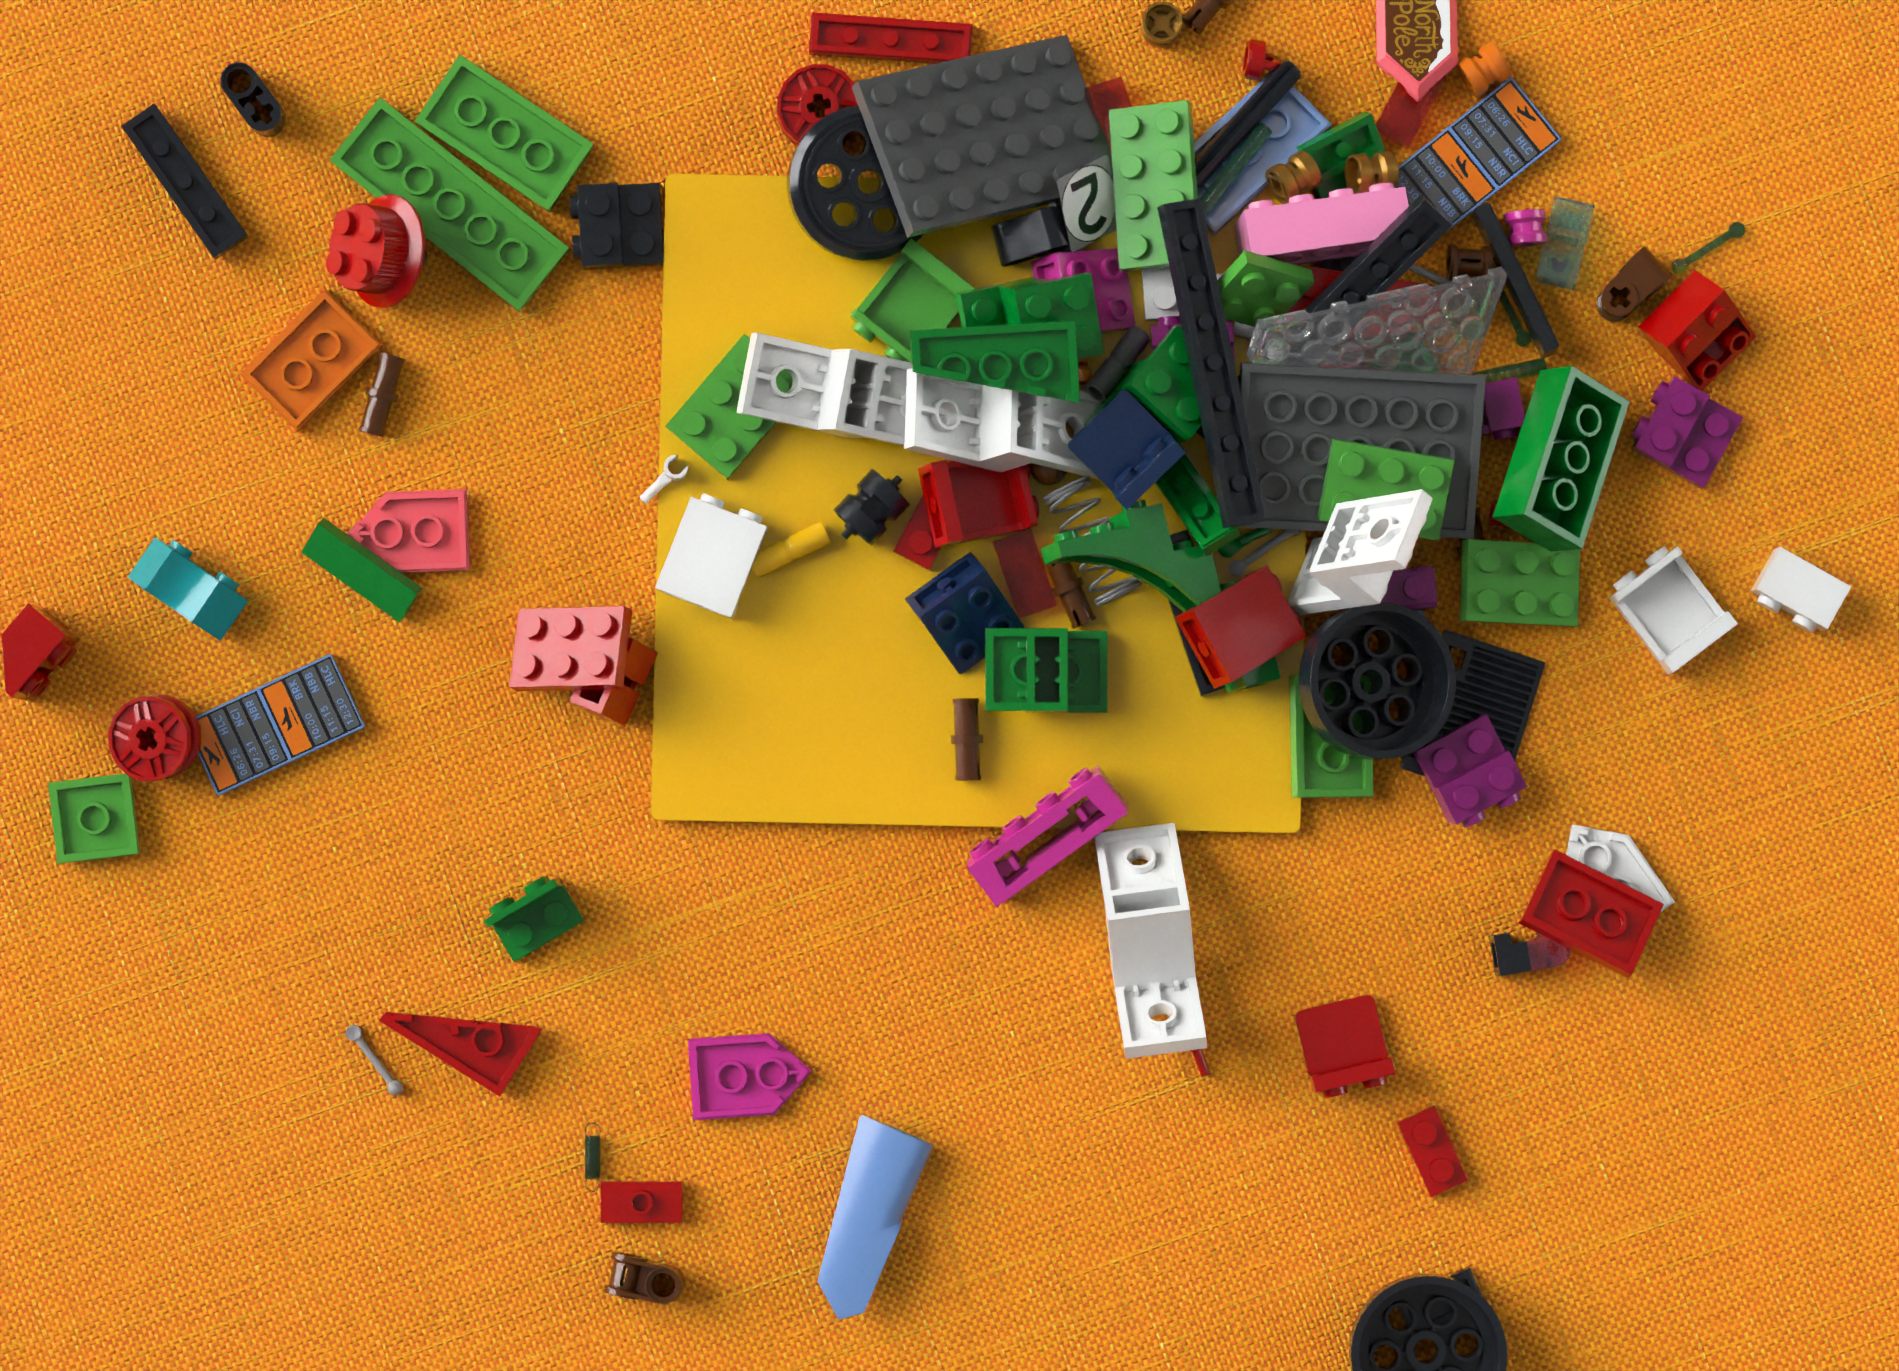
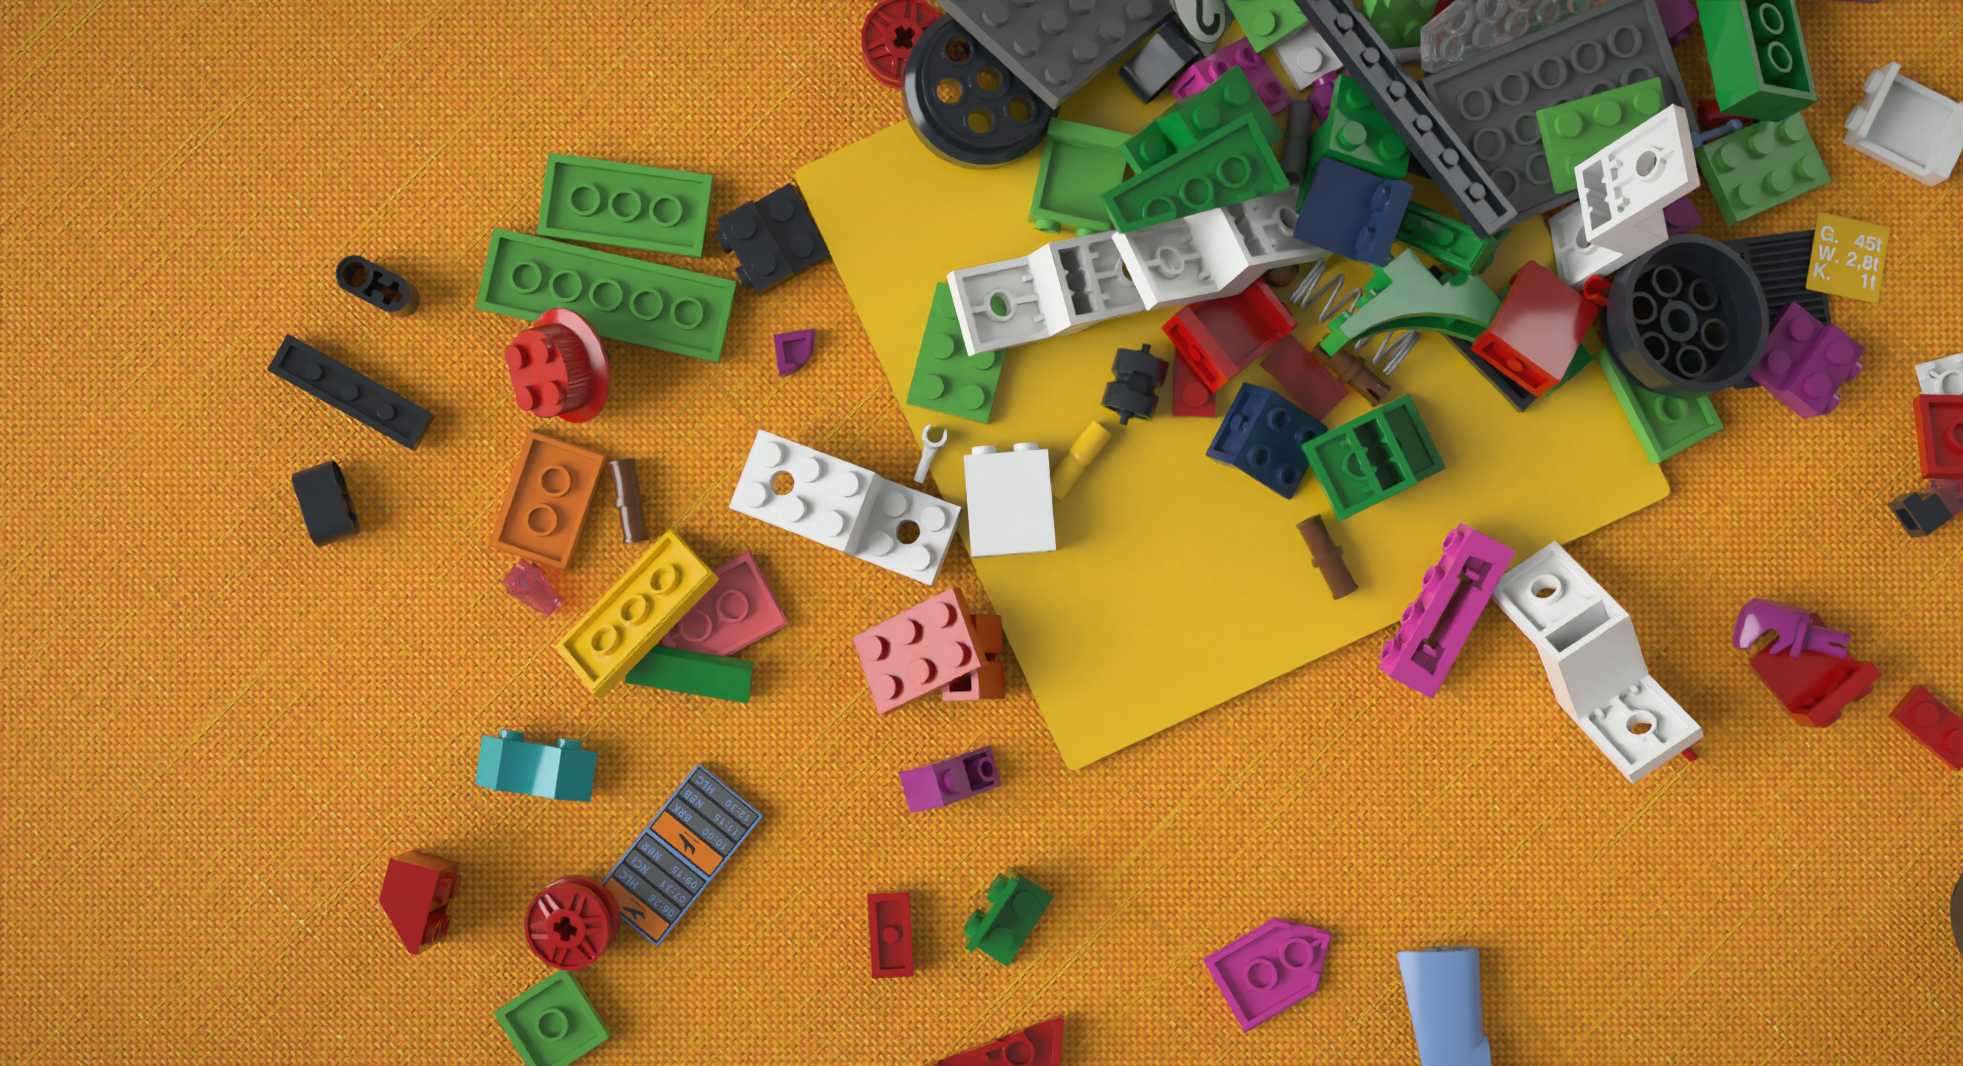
camera: 25 degrees left, 0 degrees up
(115, 268) = (325, 503): none -> black beam
(259, 429) = (532, 588): none -> clear pink cone
(340, 496) = (636, 613): none -> yellow tile
(426, 884) = (890, 934): none -> red plate
(543, 774) = (949, 779): none -> magenta slope
(568, 493) = (846, 507): none -> white bracket
(590, 332) = (793, 350): none -> magenta tile
(1238, 567) = (1497, 277): light grey hinge -> none
(1311, 619) = (1594, 289): none -> red hand
(1340, 998) = (1793, 626): none -> magenta piece
(1461, 530) = (1732, 126): none -> medium blue hinge
(1560, 701) = (1848, 258): none -> yellow sticker

